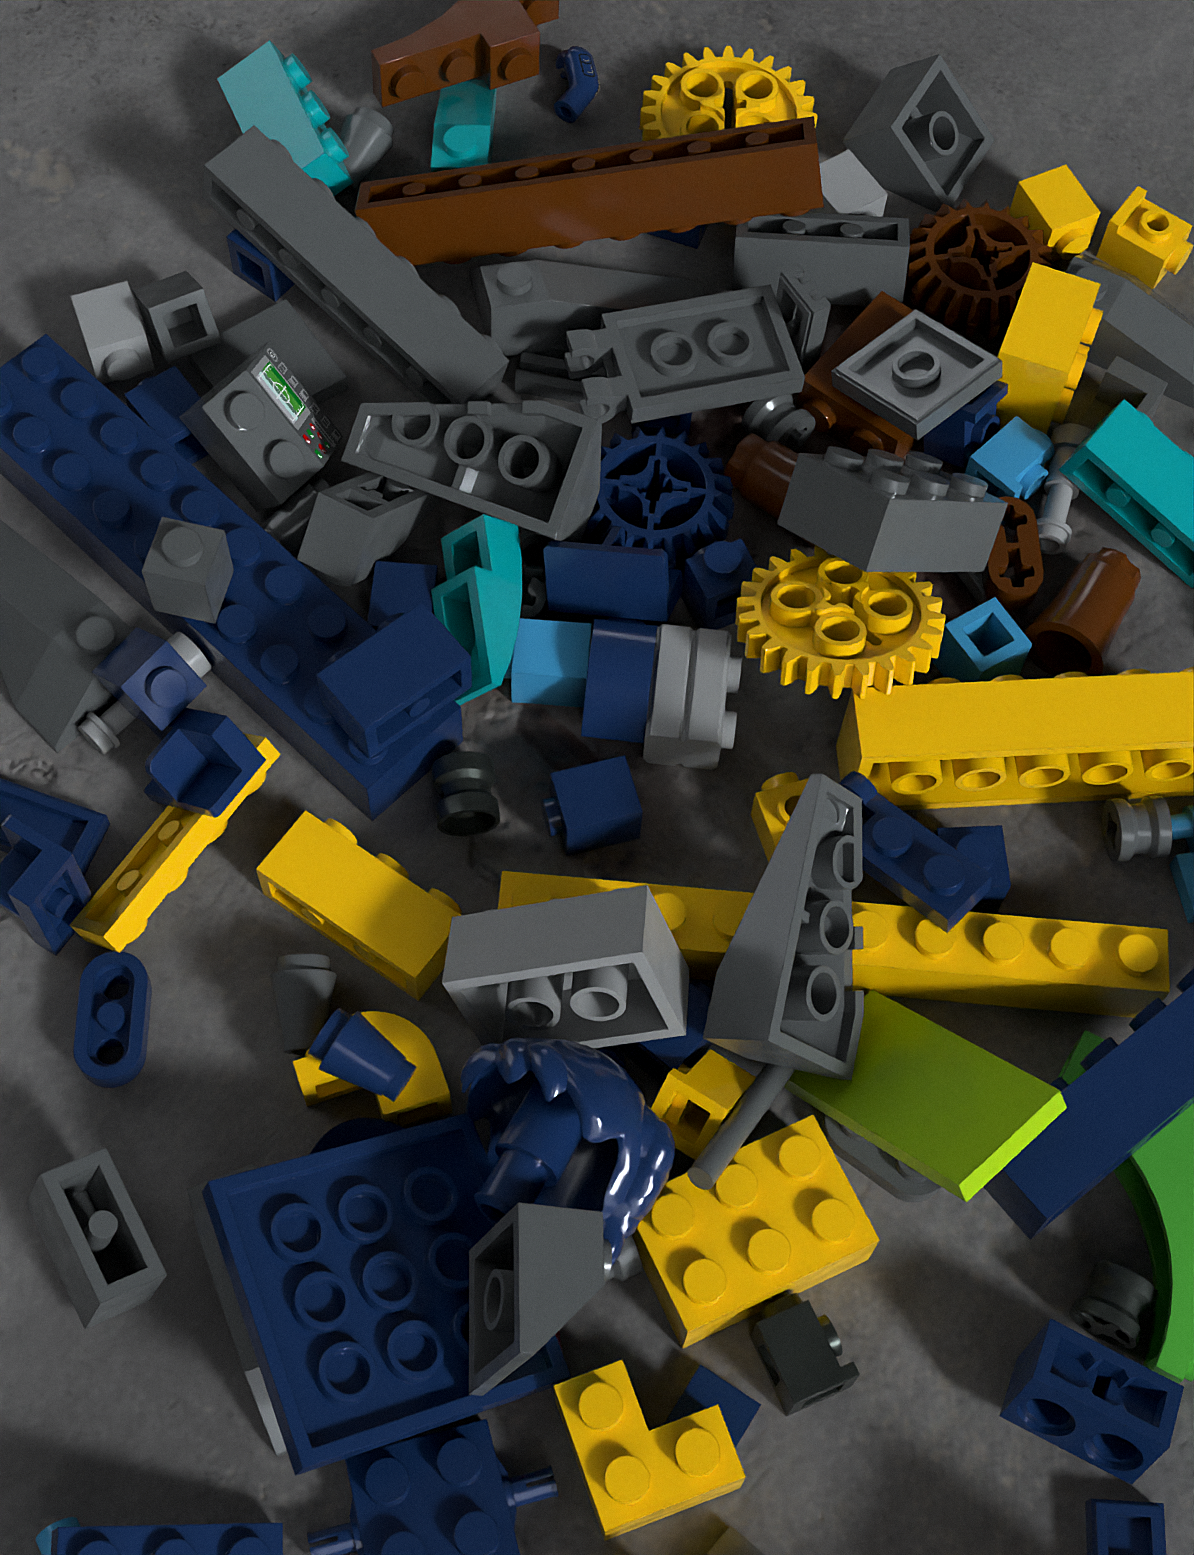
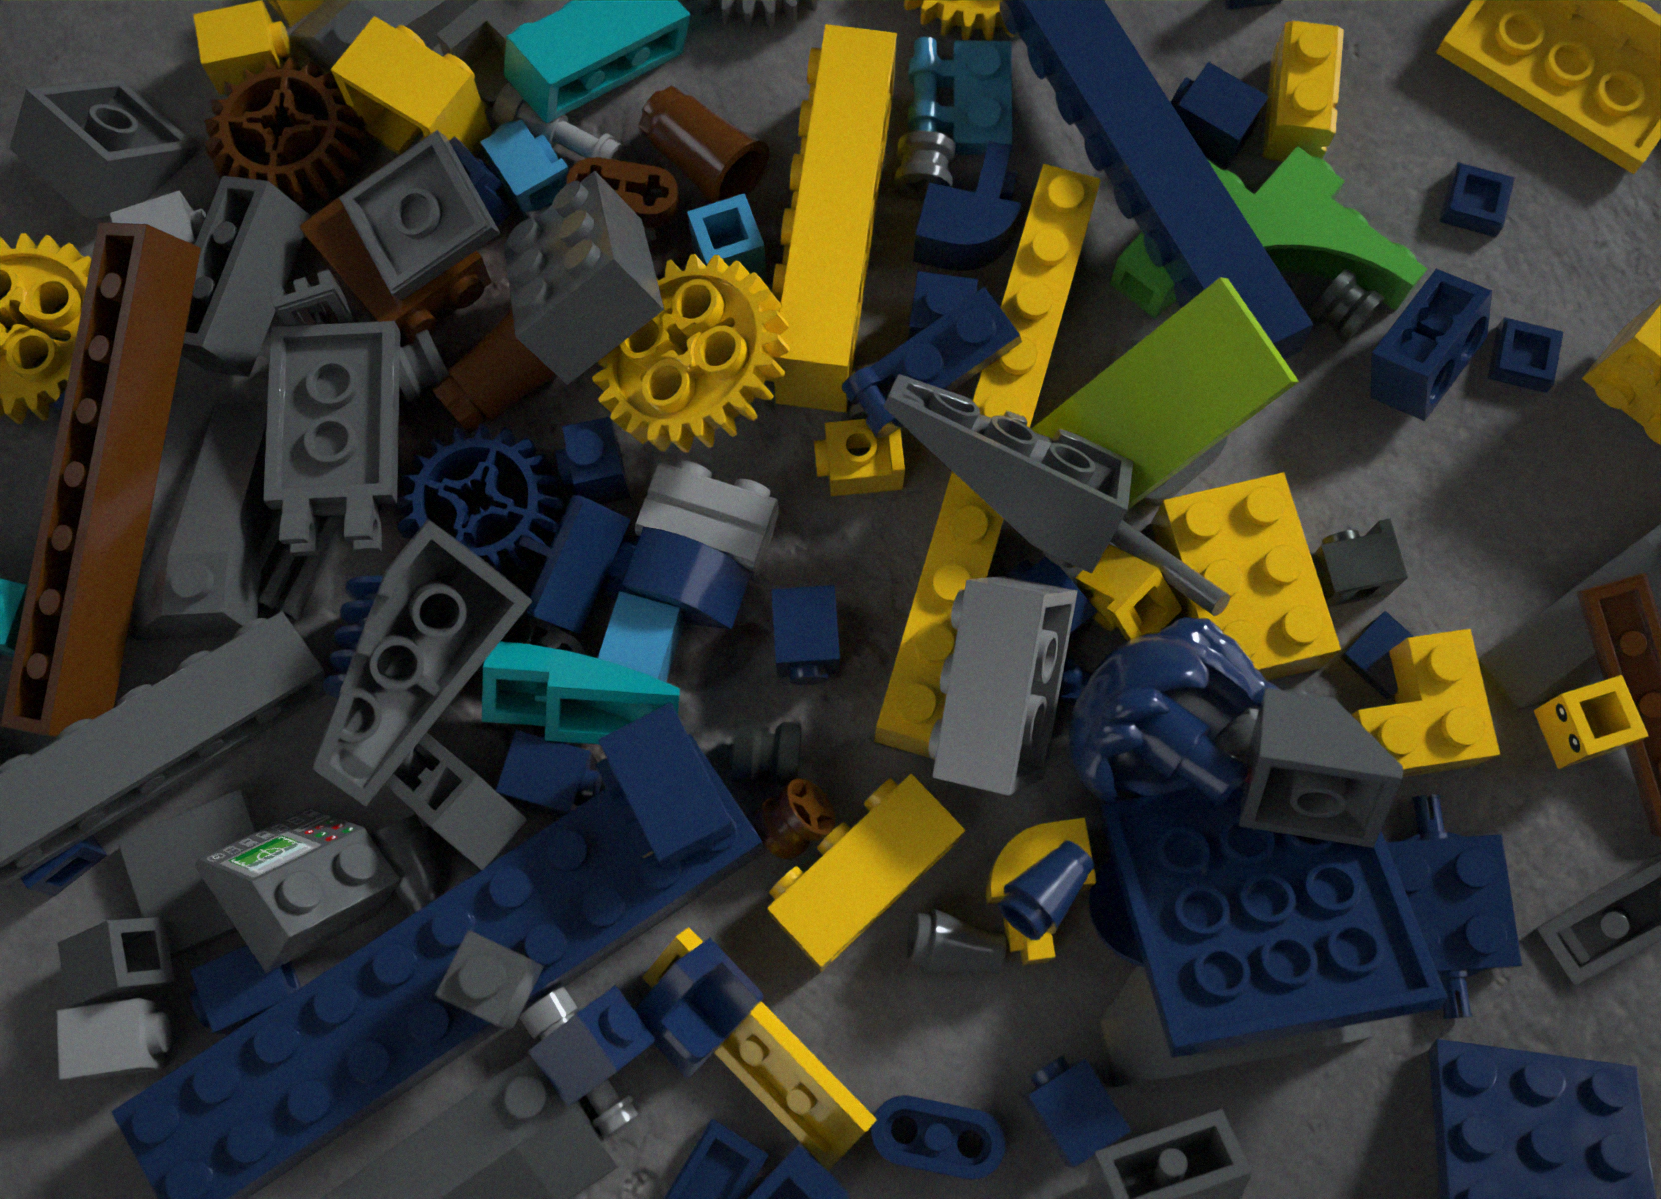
camera: 75 degrees left, 10 degrees up
(154, 1141) = (1074, 1110): none -> dark blue brick
(414, 839) = (794, 818): none -> reddish brown wheel
(1079, 882) = (969, 228): none -> dark blue brick

